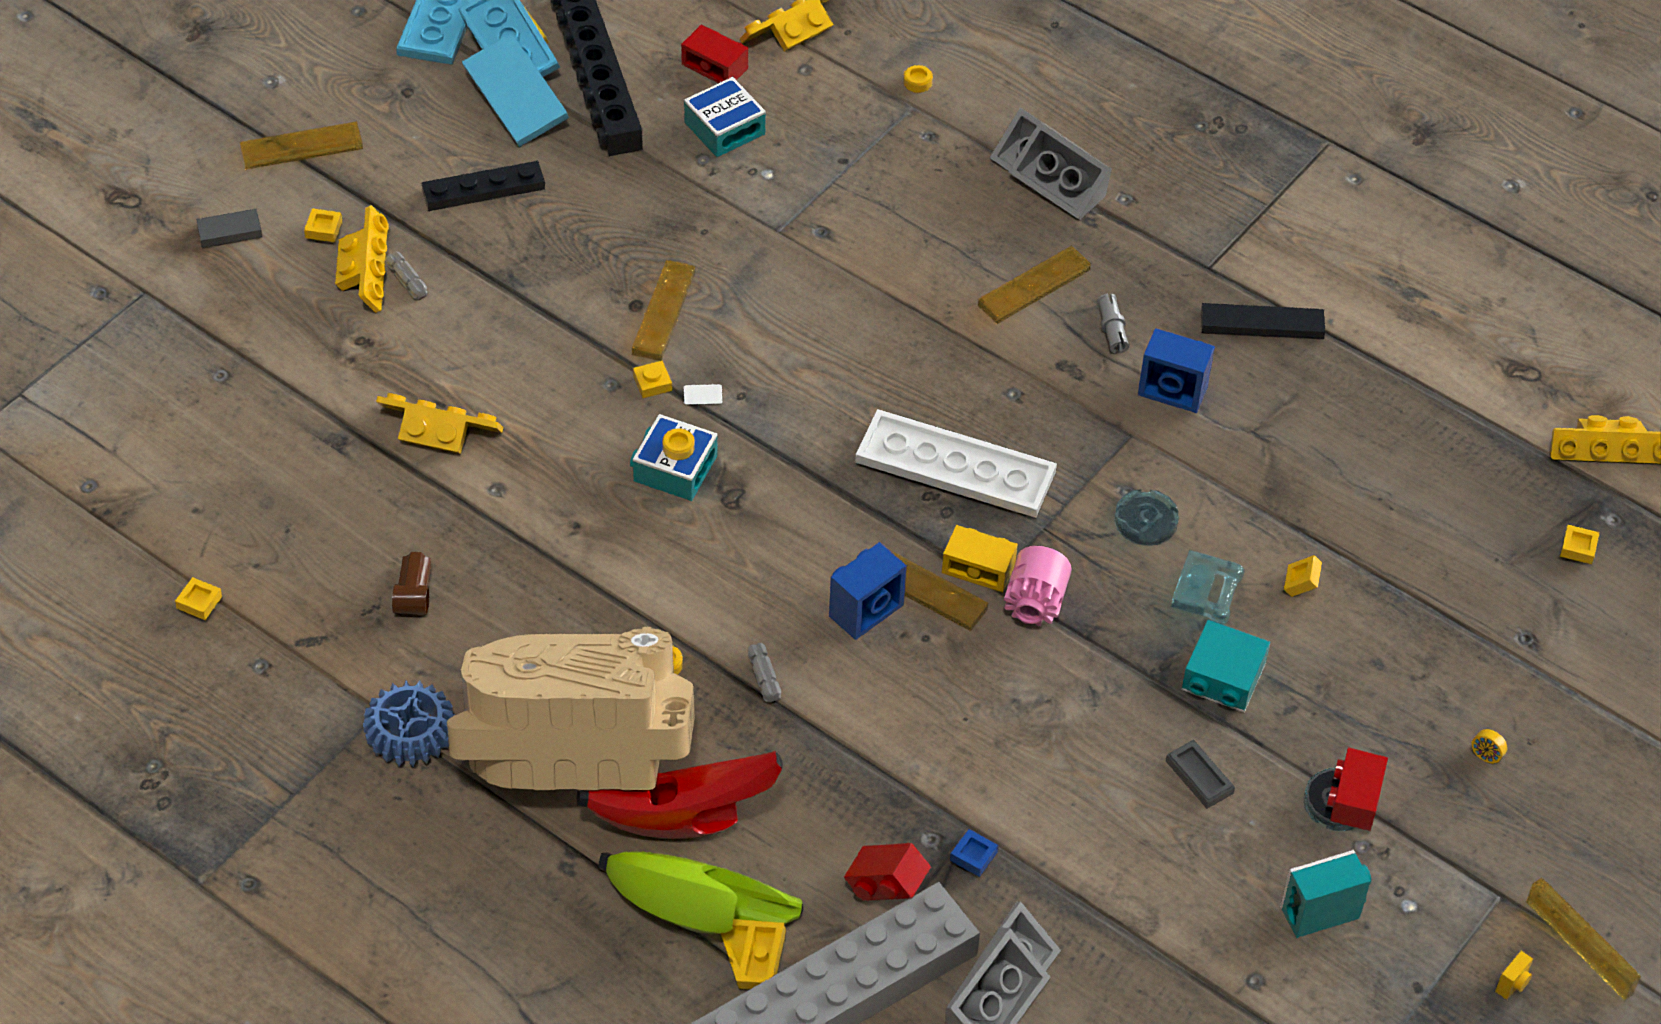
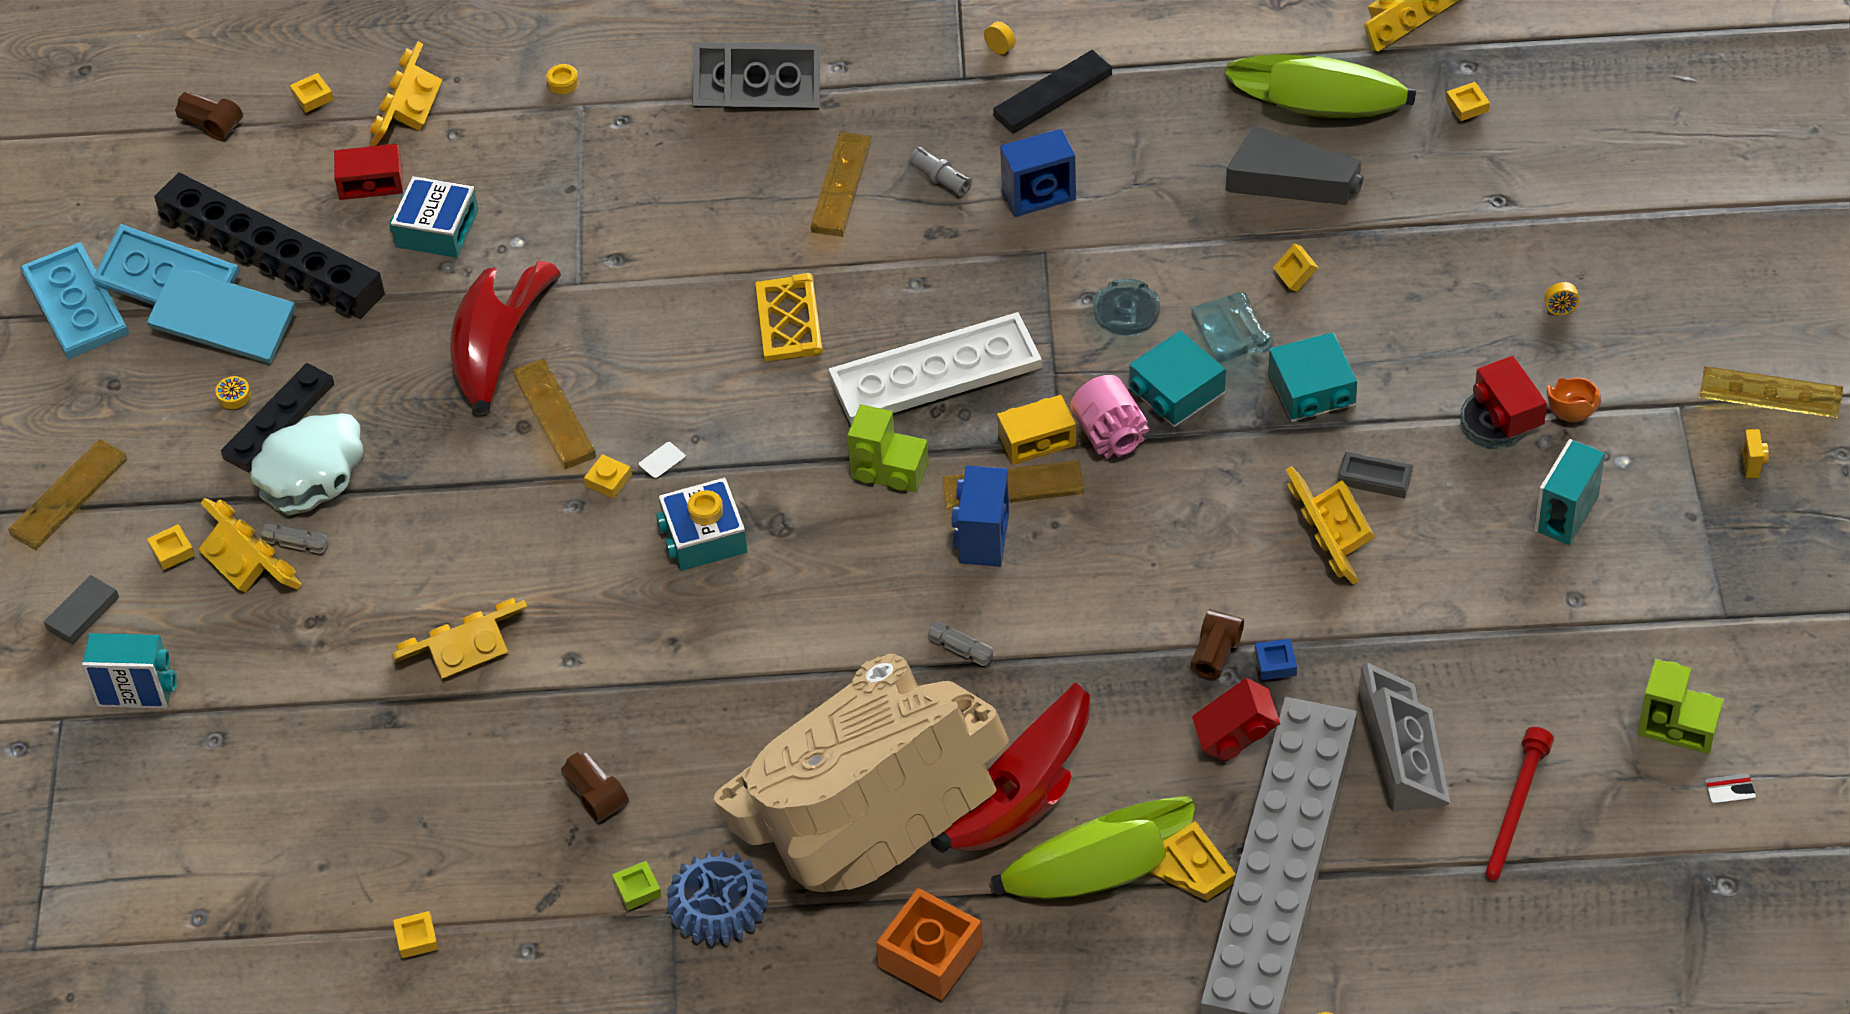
camera: 35 degrees left, 0 degrees up
(203, 286) = (129, 670): none -> piece
(369, 674) = (636, 885): none -> lime plate
(463, 227) = (307, 462): none -> light aqua piece
(472, 149) = (233, 392): none -> tile
(508, 864) = (929, 944): none -> orange brick
(670, 215) = (484, 329): none -> red piece
(847, 495) = (881, 454): none -> lime brick
(869, 355) = (792, 347): none -> yellow window
(951, 803) = (1218, 636): none -> reddish brown piece
(1121, 594) = (1177, 378): none -> teal piece
(1126, 783) = (1338, 520): none -> yellow bracket
(1262, 254) = (999, 37): none -> yellow tile
(1379, 500) = (1292, 170): none -> dark grey slope
(1413, 828) = (1573, 399): none -> orange hair
(1469, 454) = (1319, 85): none -> lime piece

